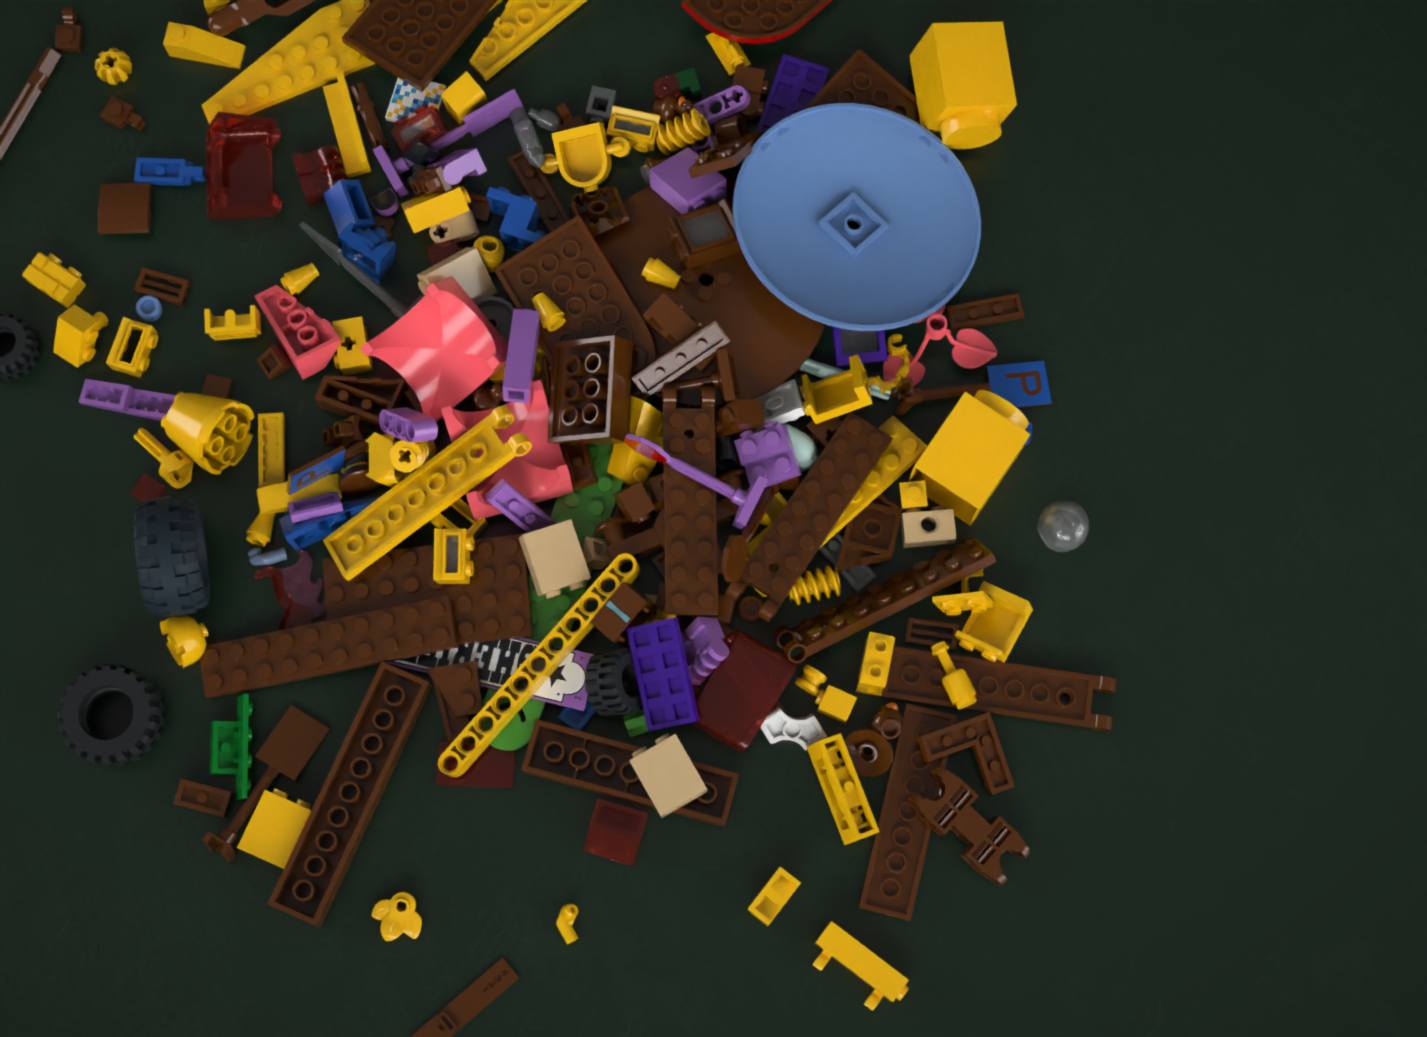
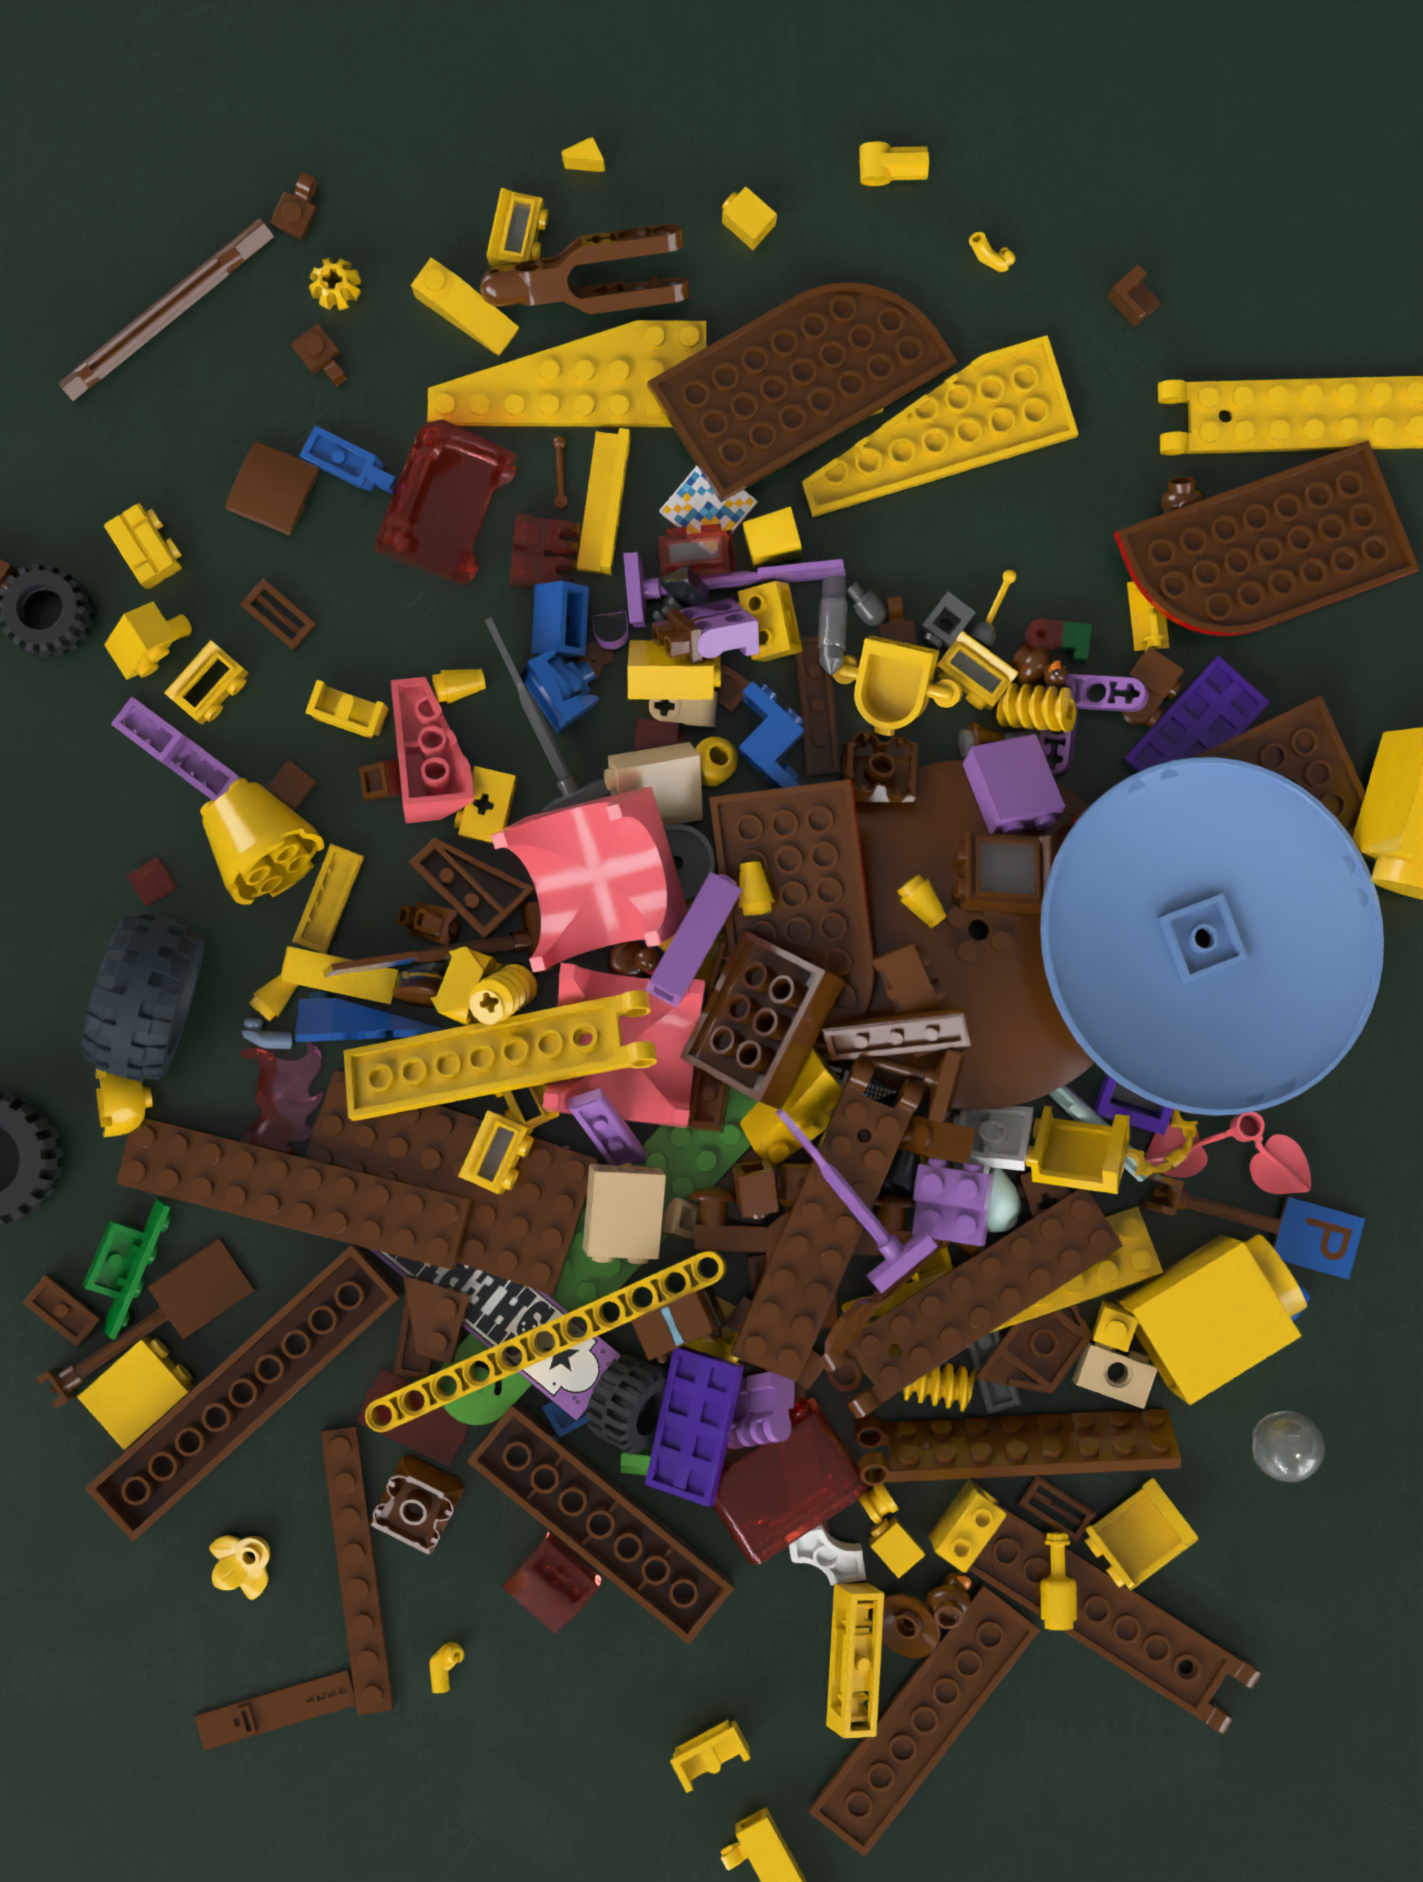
camera: 20 degrees right, 10 degrees up
(149, 308) = (250, 637): medium blue tile -> none
(172, 464) = (196, 863): yellow piece -> none
(315, 507) = (350, 1008): medium lavender tile -> none
(318, 139) = (560, 500): none -> reddish brown hinge
(366, 109) = (639, 501): reddish brown pin -> none
(408, 424) = (511, 961): medium lavender beam -> none
(480, 885) = (357, 1570): none -> reddish brown plate
(491, 151) = (776, 619): none -> yellow brick
(501, 821) = (417, 1503): none -> reddish brown slope
(627, 101) = (984, 631): none -> hinge
(667, 774) = (644, 1556): tan brick -> none
(731, 146) = (1088, 768): reddish brown hinge -> none
(966, 600) = (1101, 1495): yellow plate -> none
(983, 738) = (1051, 1663): reddish brown plate -> none
(984, 312) = (1322, 1121): reddish brown tile -> none
(984, 839) = (1002, 1800): reddish brown piece -> none

